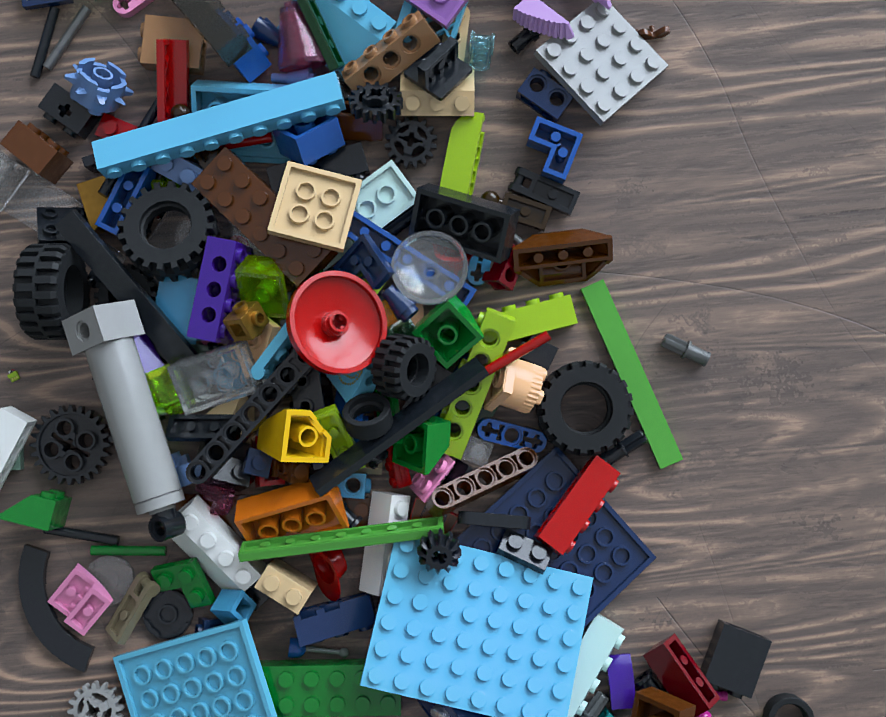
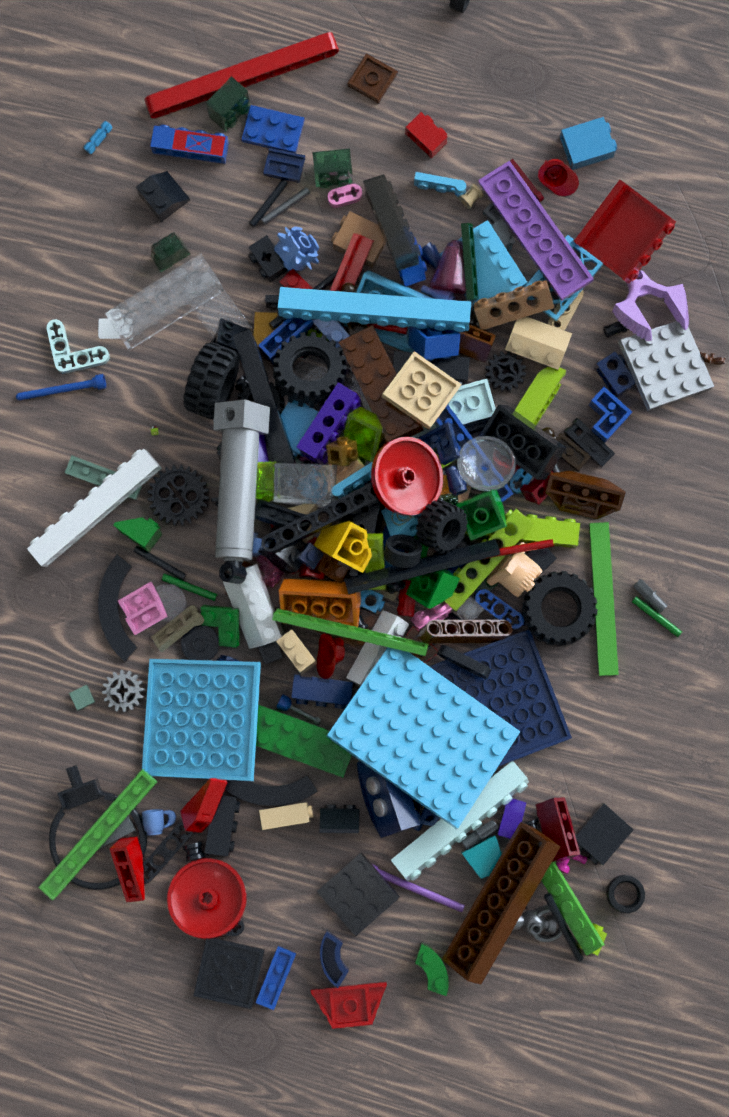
camera: 25 degrees right, 5 degrees down
(37, 151) = (235, 278): reddish brown brick -> none
(233, 606) = (252, 652): dark azure brick -> none
(375, 102) = (491, 334): black gear -> none
(439, 69) = (545, 327): black bracket -> none
(439, 551) = (423, 659): black gear -> none
(480, 51) = (580, 325): clear light blue piece -> none
(524, 551) = (477, 692): plate -> none
(577, 505) = (527, 675): red brick -> none
(624, 447) = (576, 650): black axle -> none
(702, 371) = (656, 616): none -> green bar

